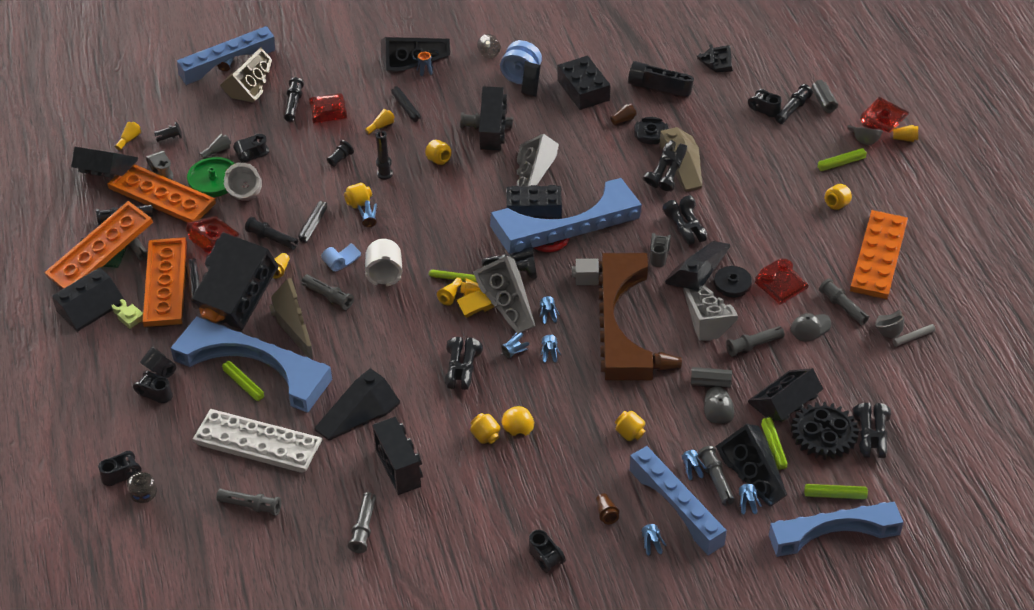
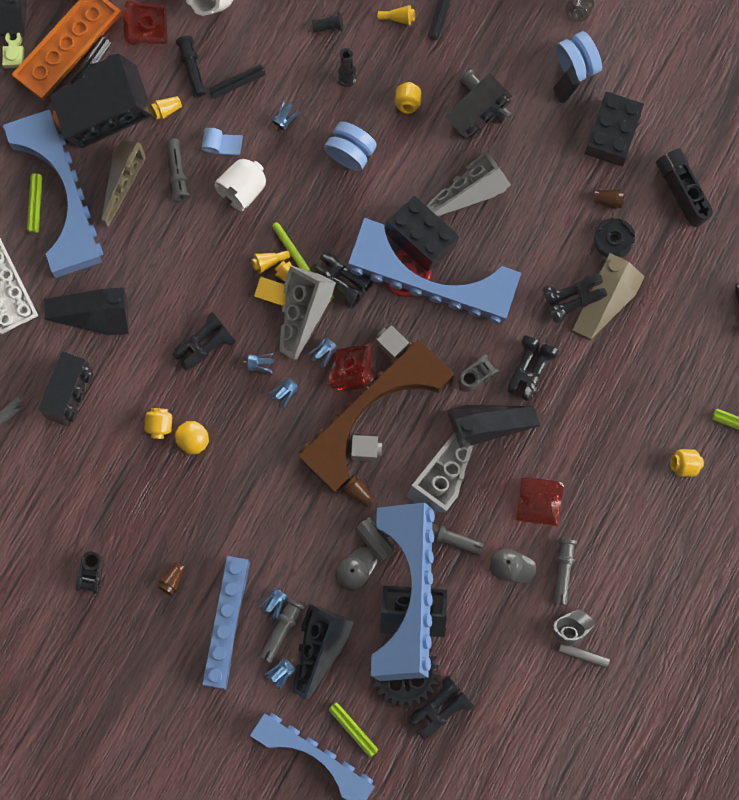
camera: 45 degrees right, 30 degrees up
(357, 195) = (294, 88): yellow head -> none
(433, 193) = (350, 146): none -> light blue wheel
(579, 299) = (351, 368): none -> clear red slope
(630, 425) = (265, 524): yellow head -> none
(642, 334) = (365, 448): none -> light grey brick
(651, 533) = (177, 633): flat silver piece -> none
(733, 281) = (497, 473): black plate -> none
(774, 443) = (356, 644): lime axle -> none
(817, 397) = (408, 650): none -> medium blue arch
(879, 254) = (654, 551): orange plate -> none

